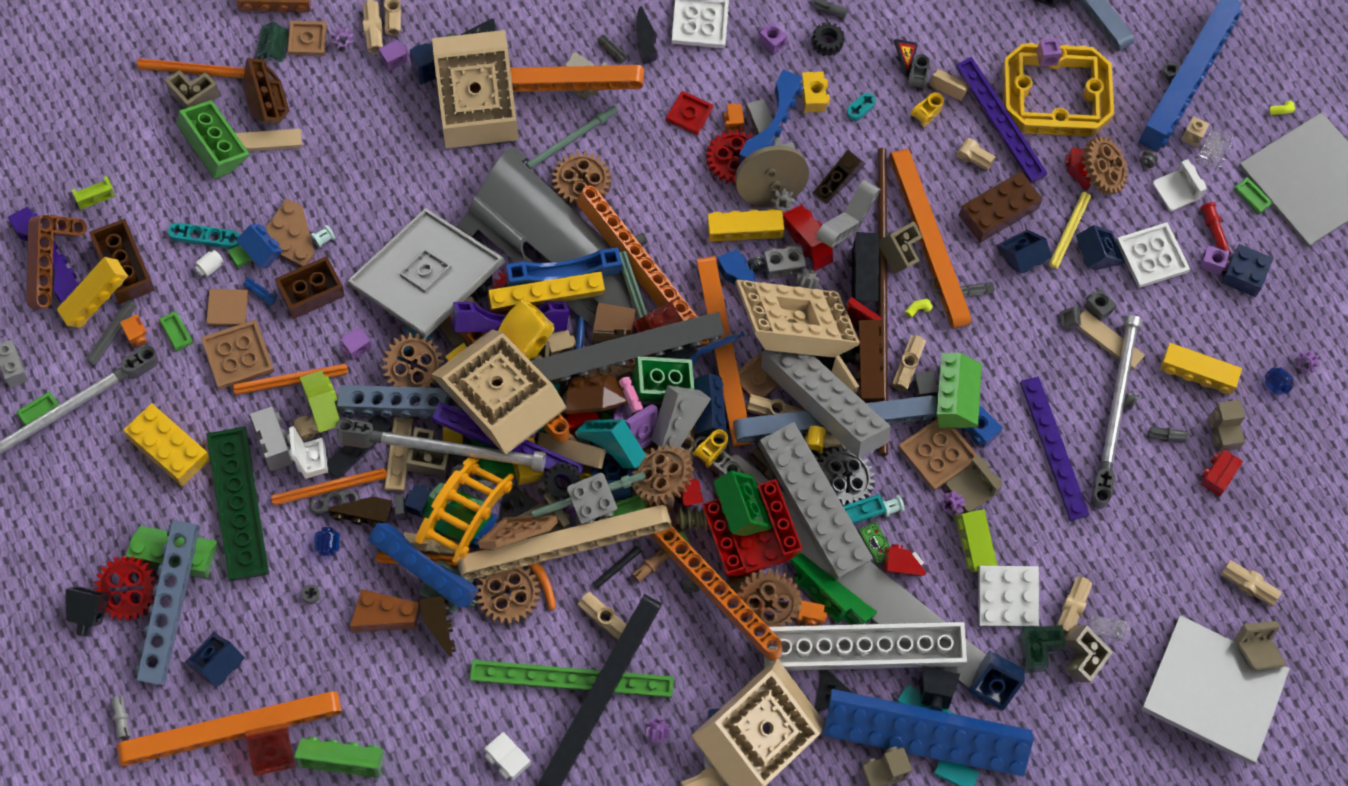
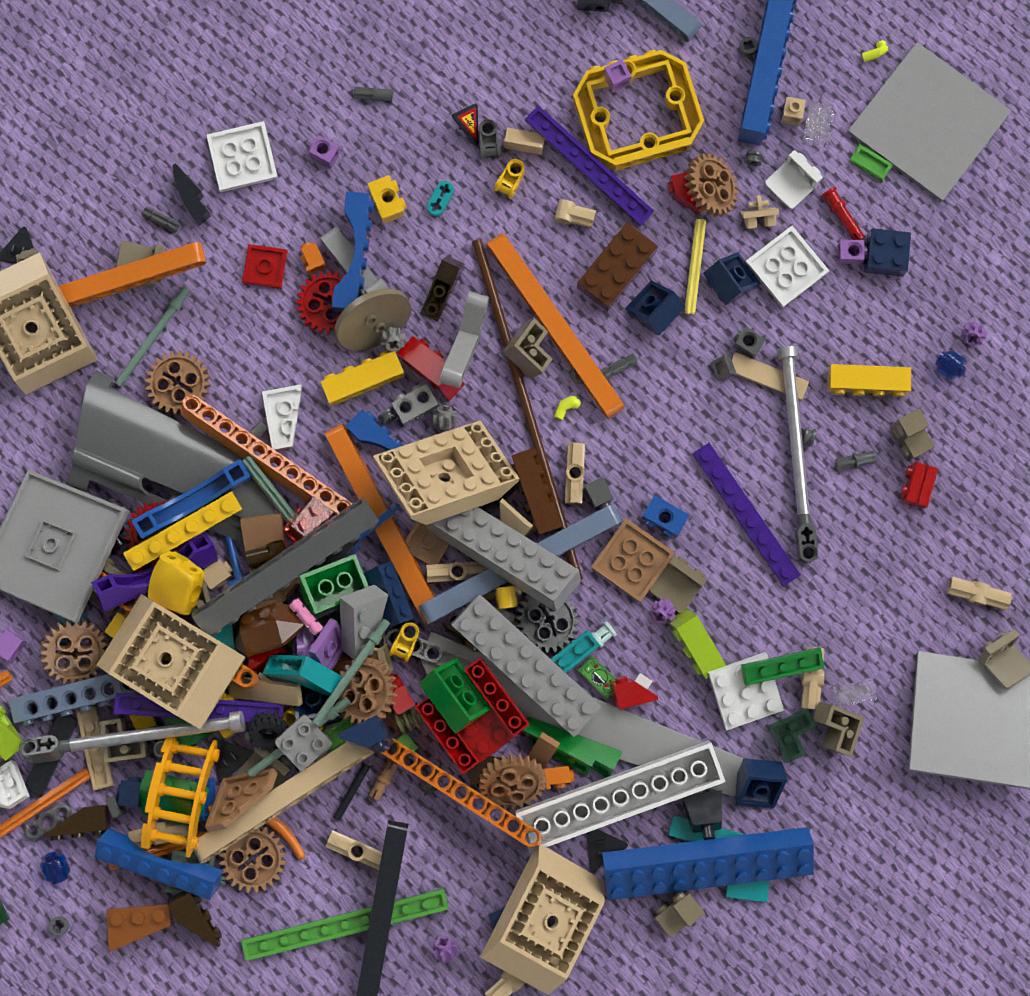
camera: 15 degrees left, 15 degrees up
(653, 506) = (369, 734): none -> dark blue slope
(664, 233) = (282, 415): none -> white wing
(685, 432) = (374, 639): none -> sand green bar
(808, 582) = (543, 749): none -> medium nougat tile
(828, 48) = (385, 143): black tyre -> none
(859, 312) = (512, 442): red tile -> none
(865, 269) = (501, 392): black brick -> none
(959, 391) = (634, 491): bright green slope -> none
(1049, 581) = (782, 666): none -> green tile
(1148, 206) = (768, 214): none -> tan hips

